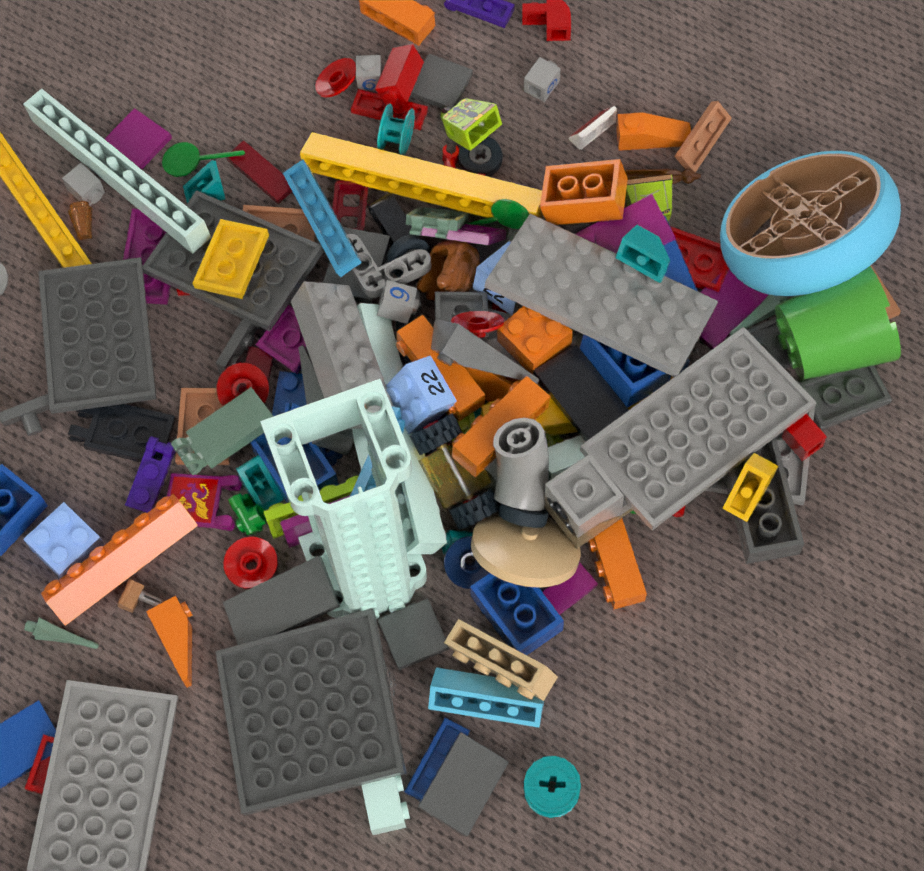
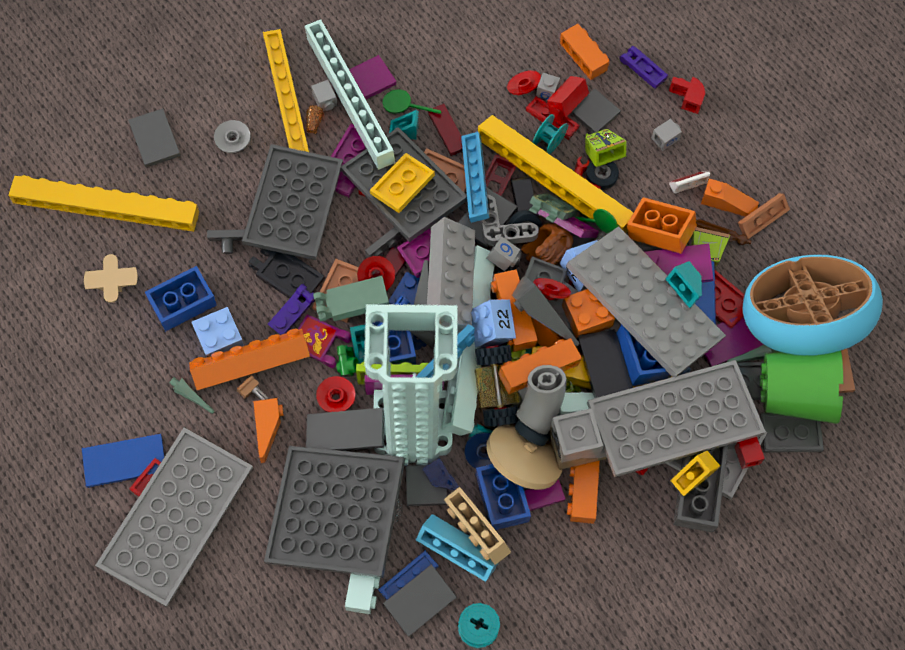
camera: 15 degrees right, 0 degrees up
(425, 615) = (439, 476): none -> clear blue slope

